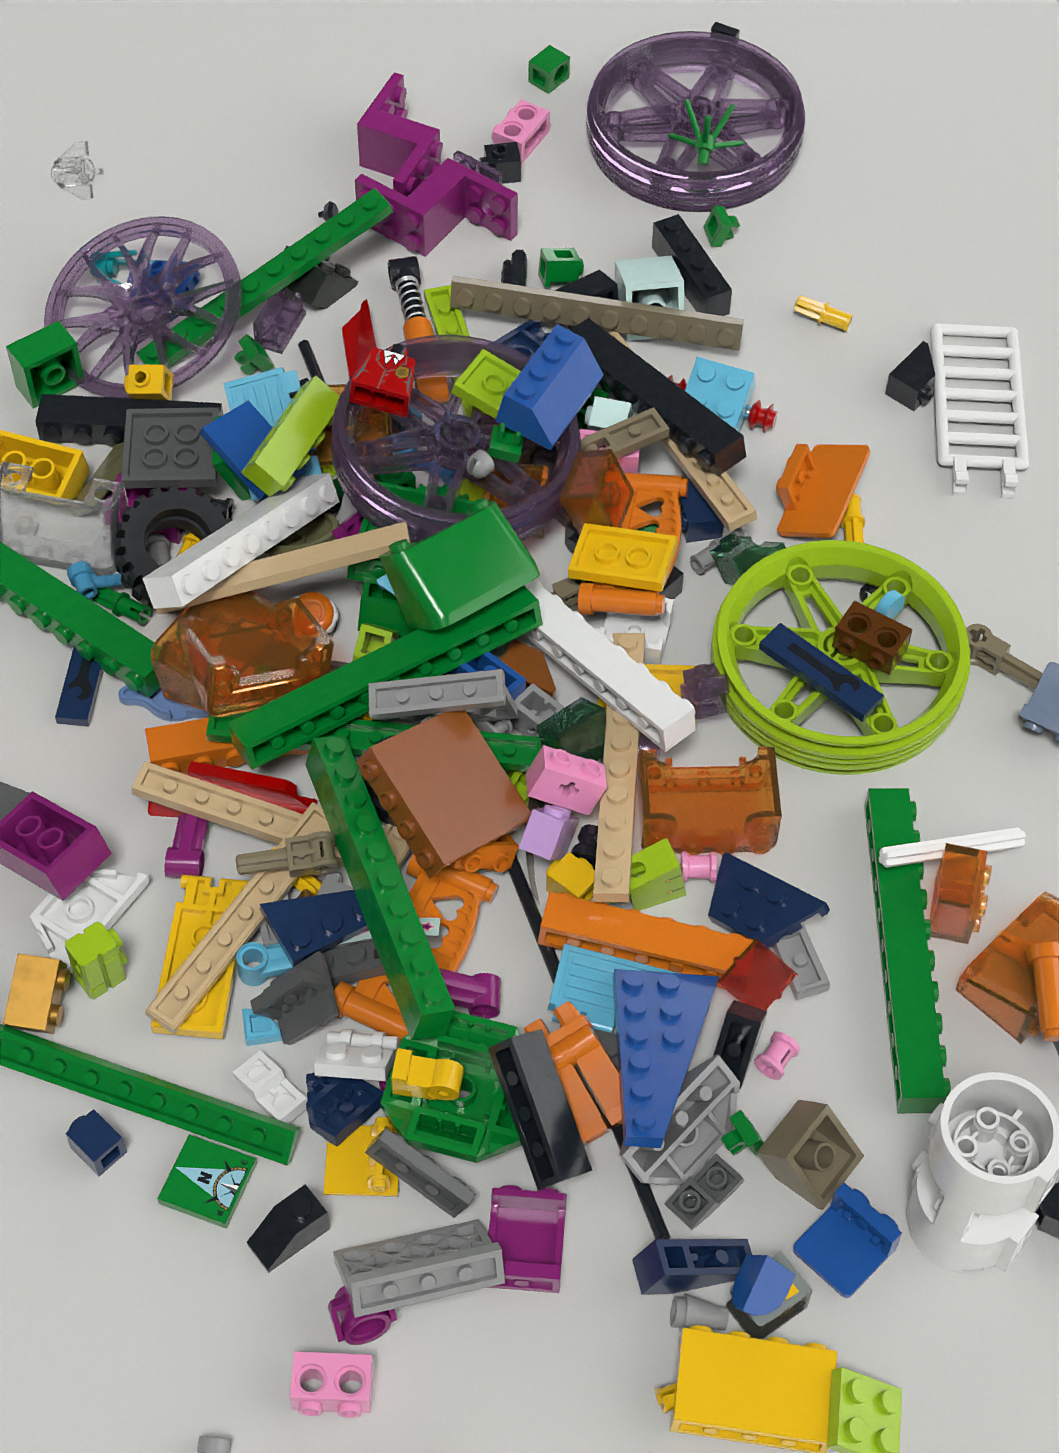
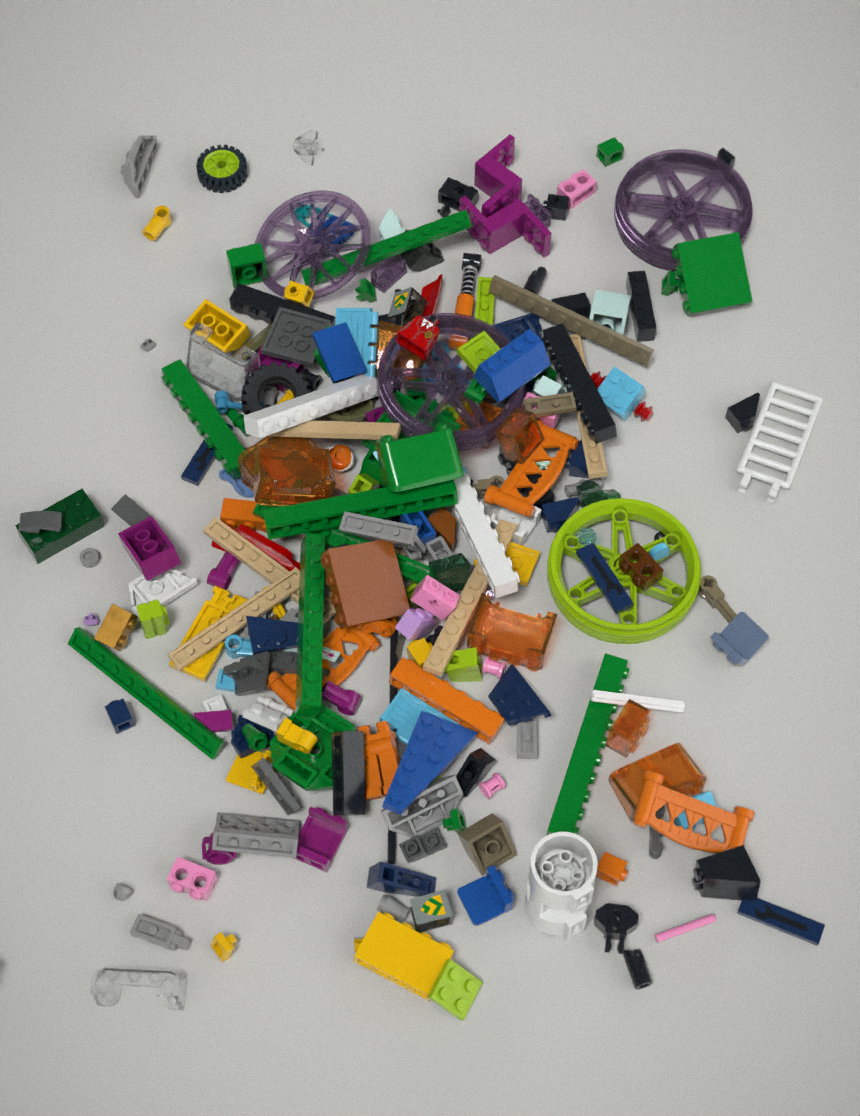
camera: 20 degrees right, 5 degrees up
(207, 1181) = (169, 754): green tile -> none
(254, 251) = (390, 226): none -> light aqua slope
(271, 1096) = (216, 720): none -> magenta tile
(289, 1228) = (200, 793): black slope -> none
(292, 437) = (360, 352): lime brick -> none
(300, 856) = (277, 595): dark tan connector -> none
(325, 357) = (403, 305): none -> piece
(336, 182) = (453, 190): none -> black brick
(351, 1102) = (255, 738): none -> green cone
(479, 464) = (455, 400): light grey hinge -> none
(559, 266) = (564, 283): green brick -> none
(623, 557) = (519, 477): yellow plate -> none
(698, 601) = (558, 512): none -> dark blue slope
(705, 141) = (677, 228): green plant -> none
(705, 690) = (535, 569): brick -> none
(757, 976) = (497, 739): clear red piece -> none
(761, 1285) = (424, 904): brick -> none
(766, 616) = (586, 536): none -> clear light blue plate
(781, 192) = (712, 273): none -> green panel
(819, 488) = (656, 464): orange bracket -> none
(823, 313) = (708, 356): yellow axle -> none
(853, 520) = (669, 492): yellow axle -> none

